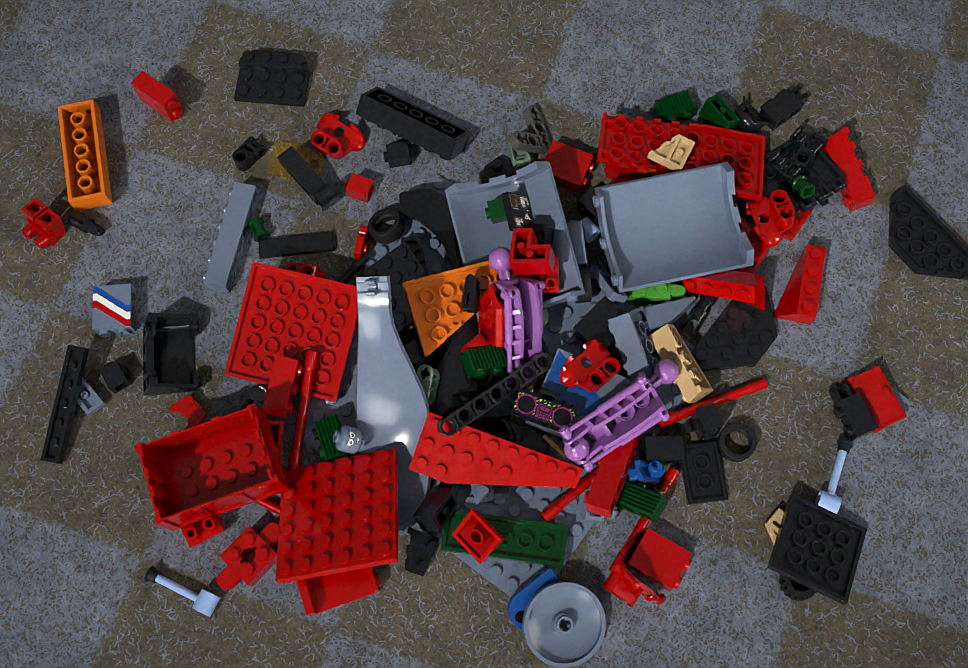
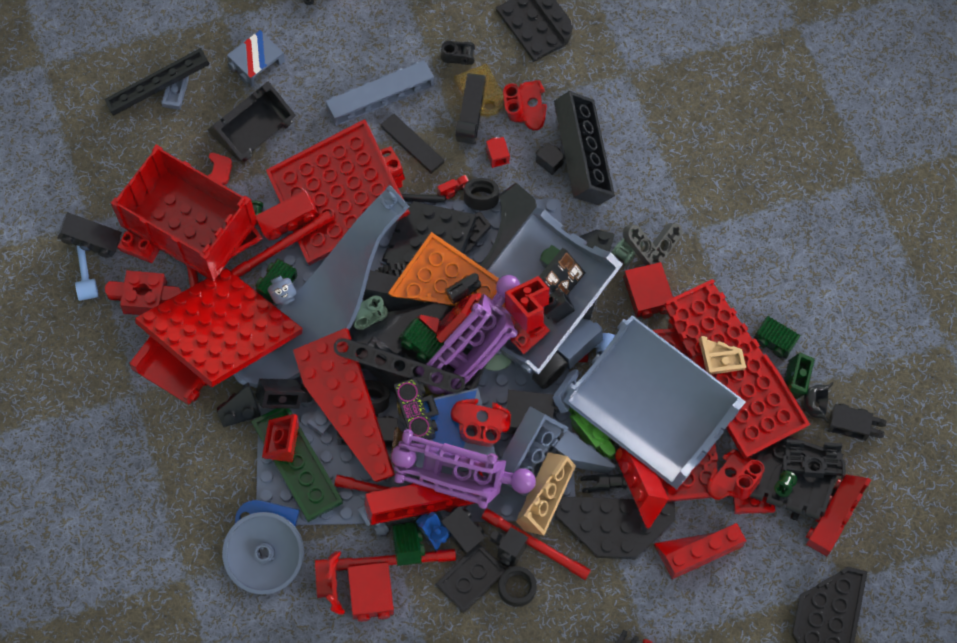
camera: 45 degrees right, 5 degrees down
(115, 376) = (205, 99): black brick -> none
(159, 564) = (89, 235): none -> black brick
(258, 229) = (402, 106): dark green bush -> none

